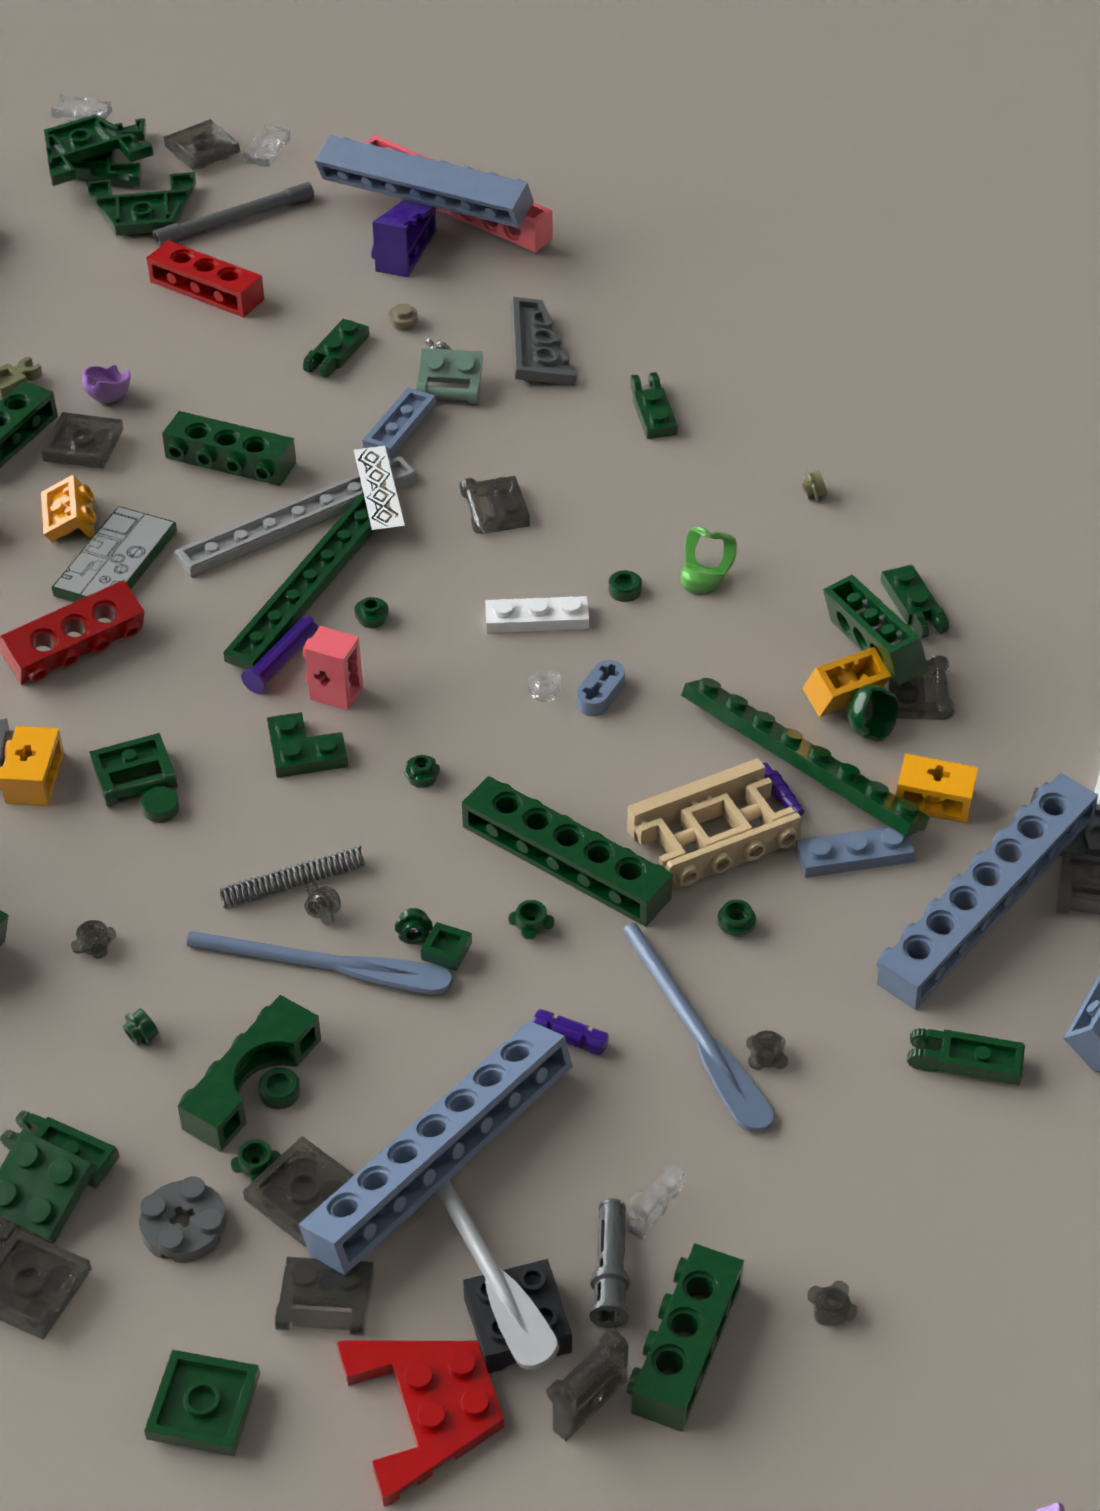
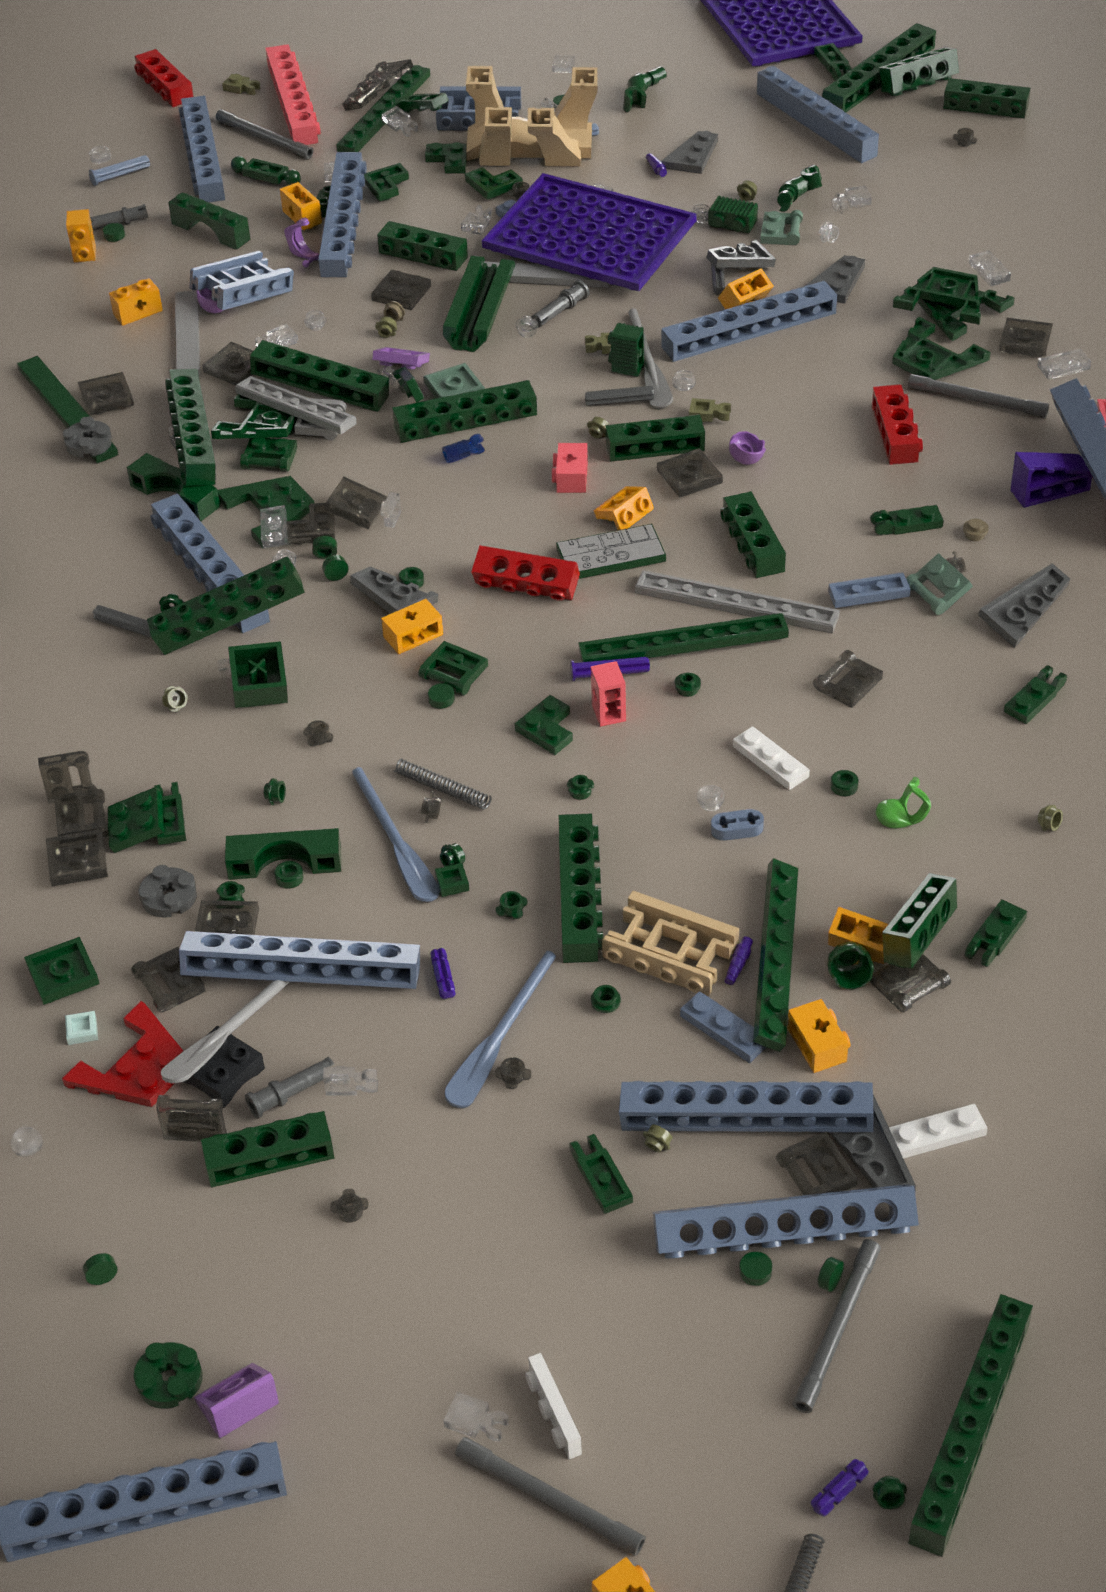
camera: 55 degrees right, 0 degrees up
(312, 1433) = (81, 1027): none -> light aqua tile
(378, 488) = (792, 617): white sticker -> none
(960, 983) = (657, 1138): none -> olive plate

